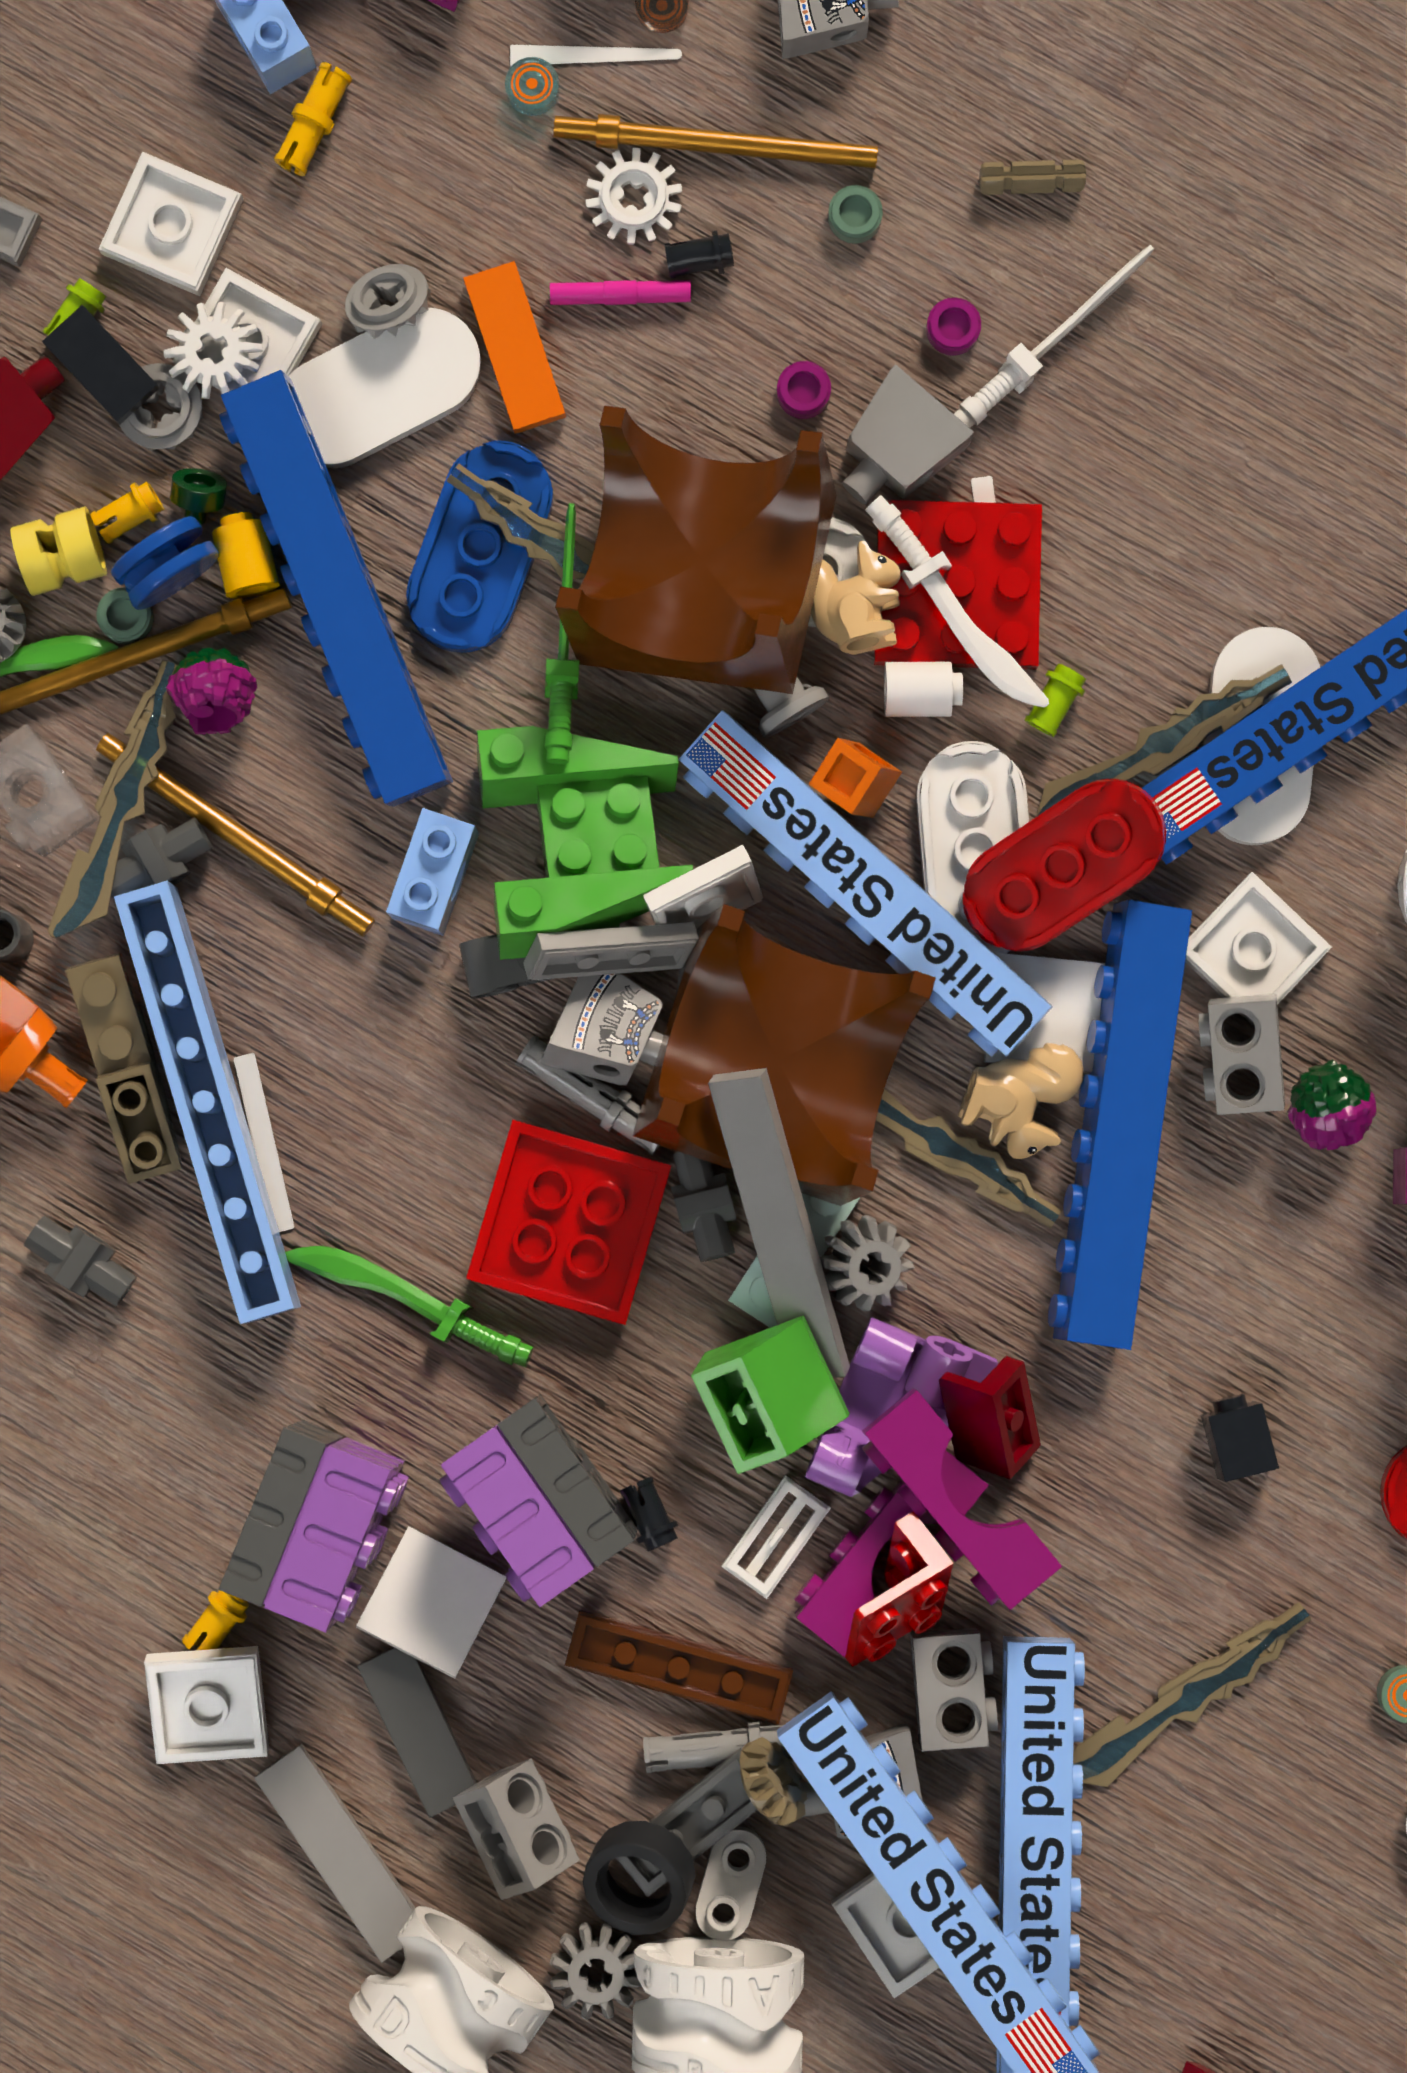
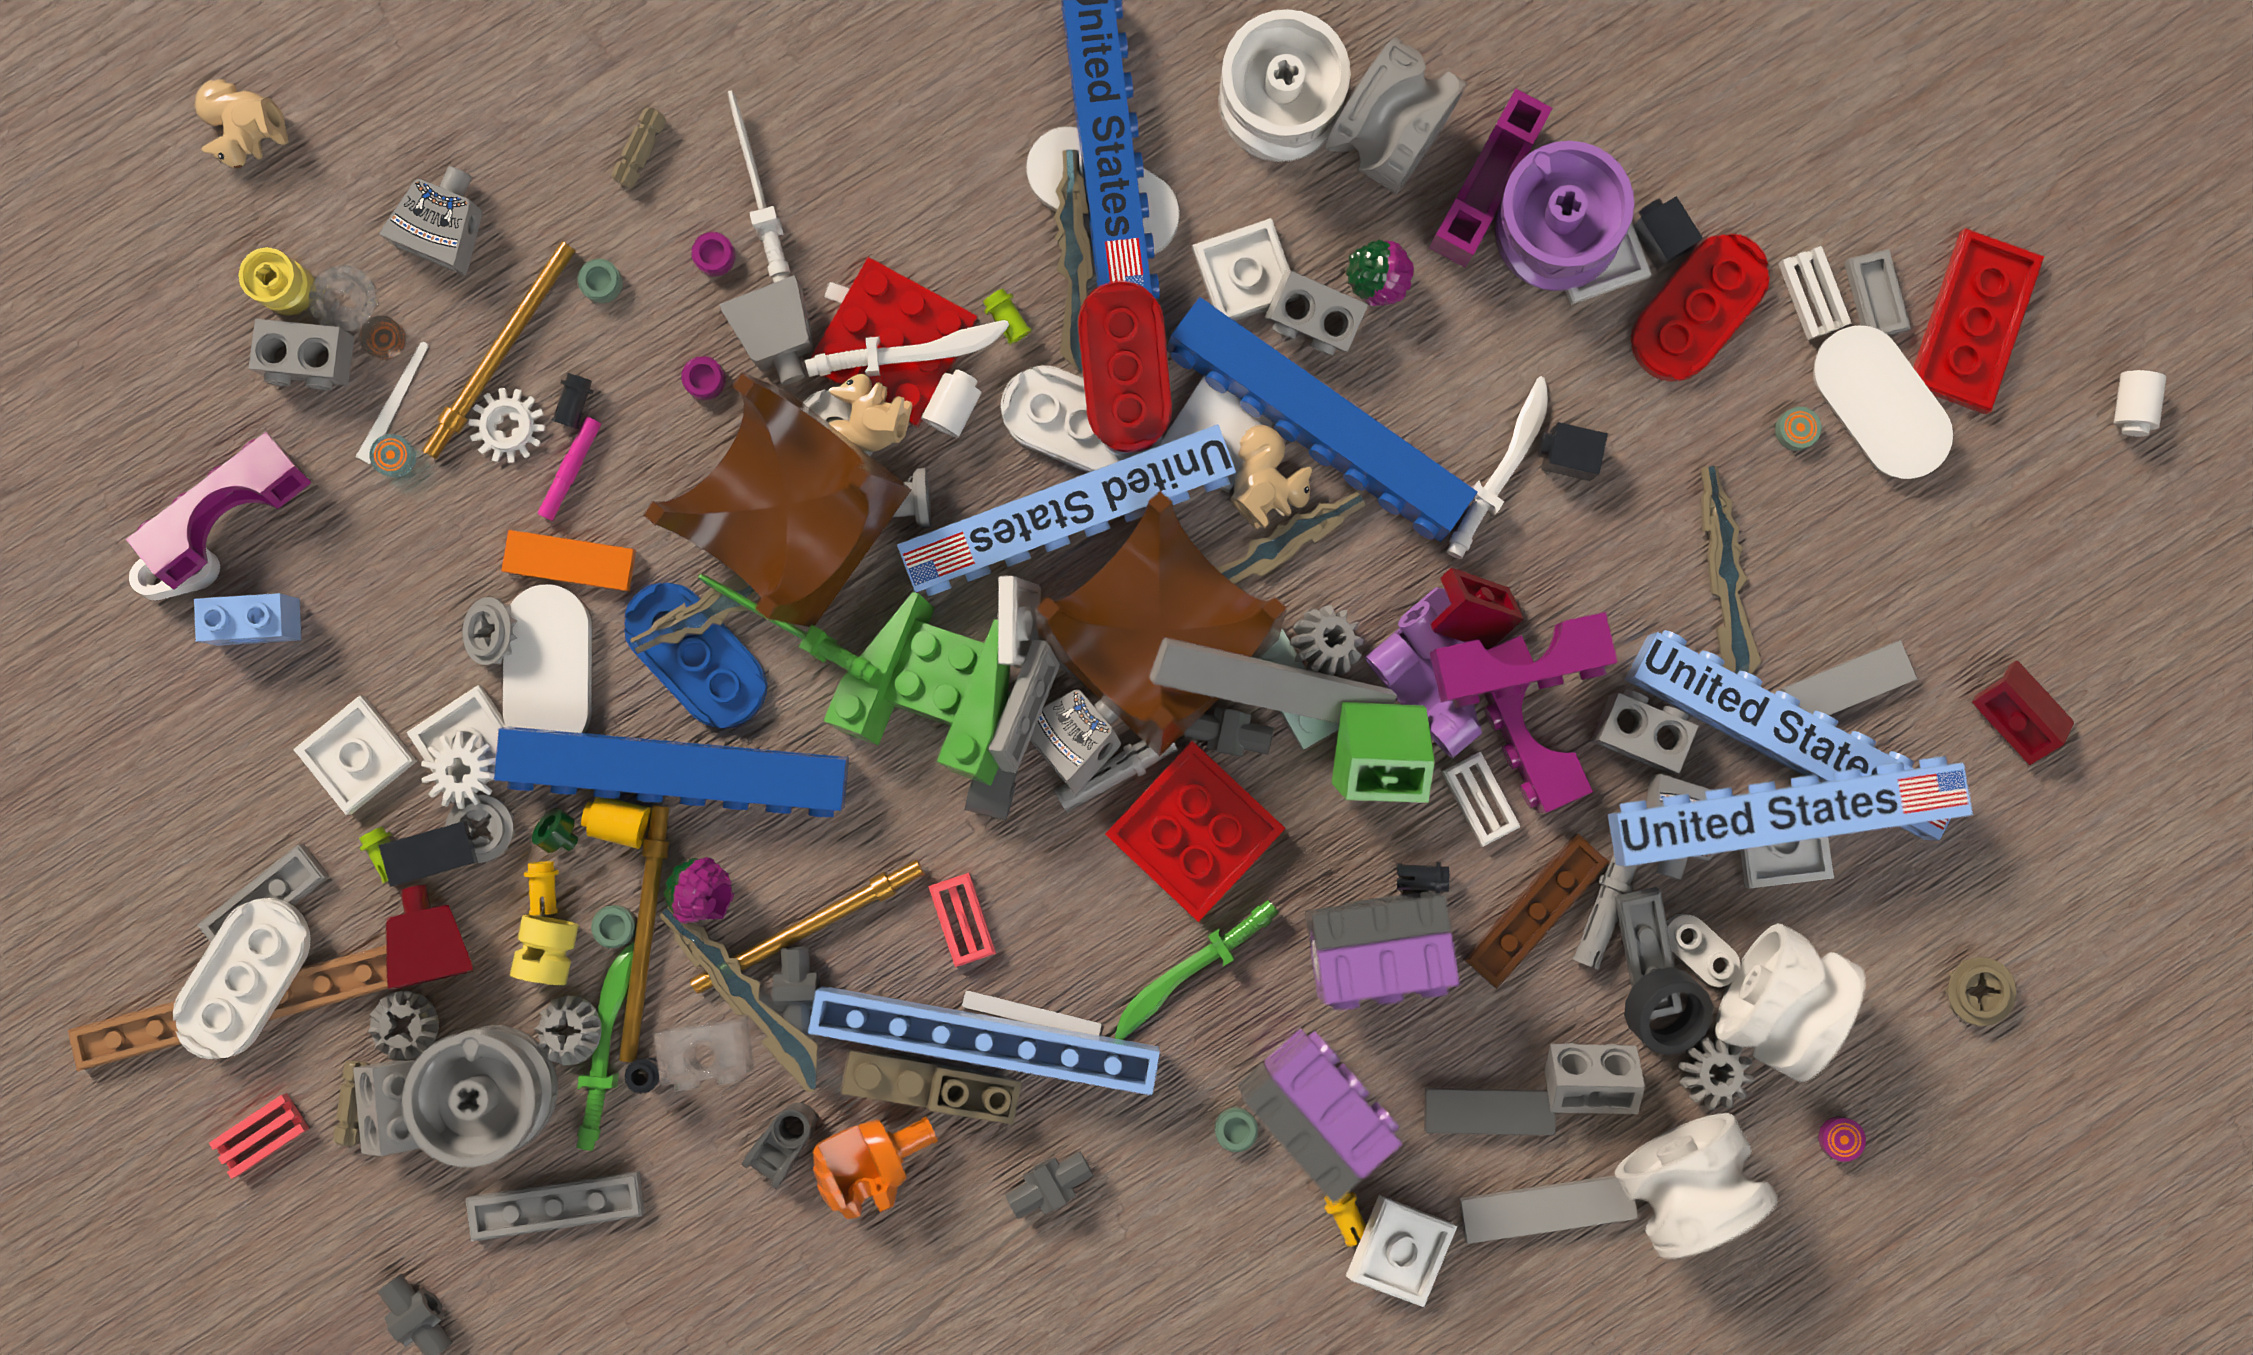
camera: 65 degrees left, 0 degrees up
(158, 568) = (592, 886): blue head -> none
(250, 1444) = (1236, 1129): none -> sand green tile
(300, 1040) = (974, 953): none -> coral tile
(313, 119) = (334, 618): yellow pin -> none
(431, 1602) = (1408, 1058): white tile -> none
(432, 871) = (904, 802): light blue brick -> none
(772, 1782) = (1651, 885): dark tan gear -> none
(855, 778) = (990, 478): orange brick -> none
(917, 1585) = (1560, 715): red bracket -> none
(1139, 1907) = (1854, 680): none -> light grey tile
(1238, 1372) = (1486, 499): none -> white sword

